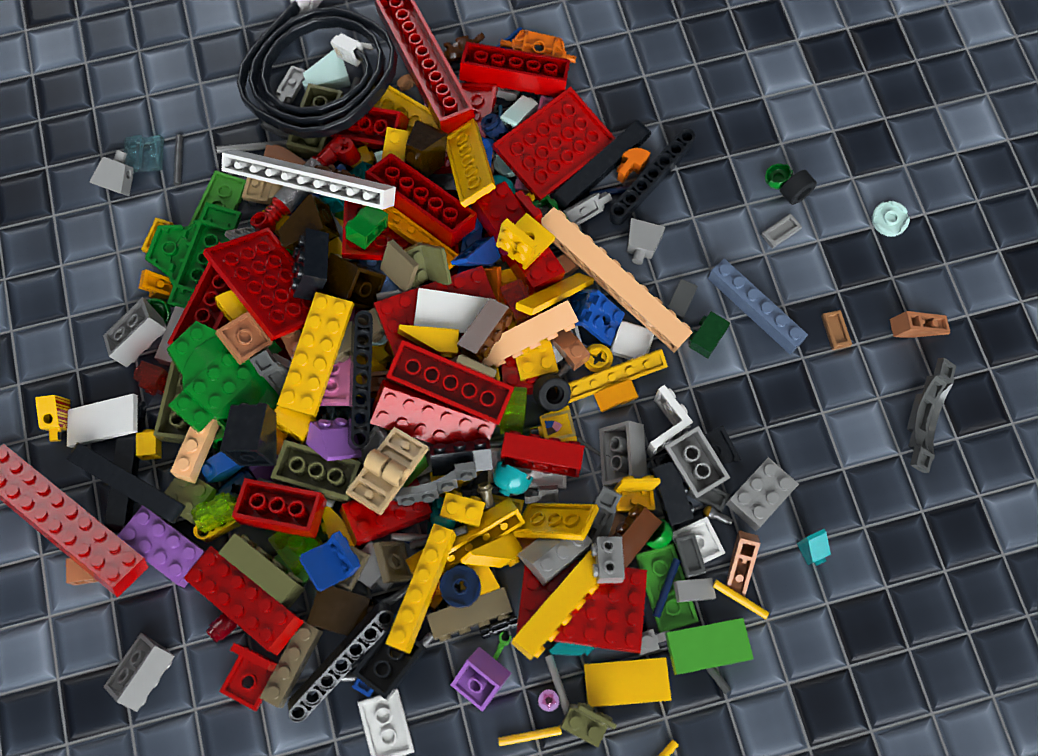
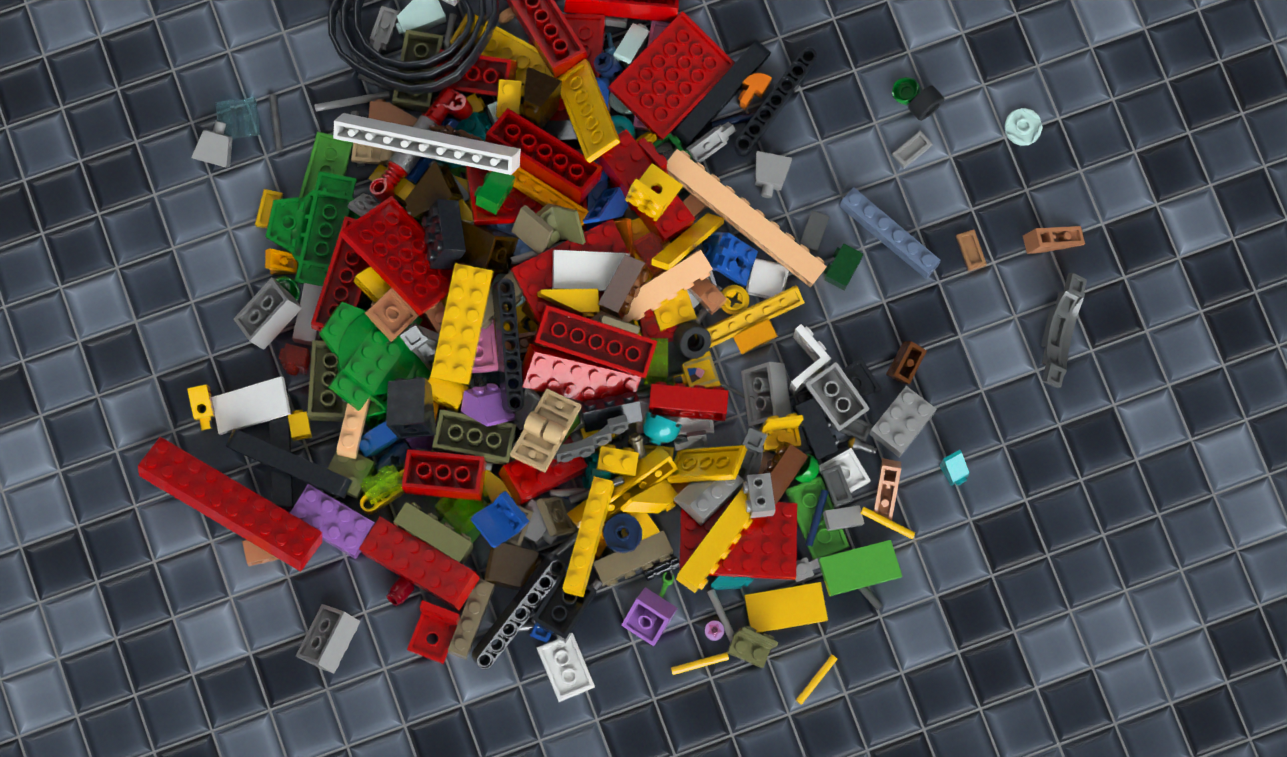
camera: 10 degrees left, 5 degrees up
(768, 434) = (906, 362): none -> reddish brown brick

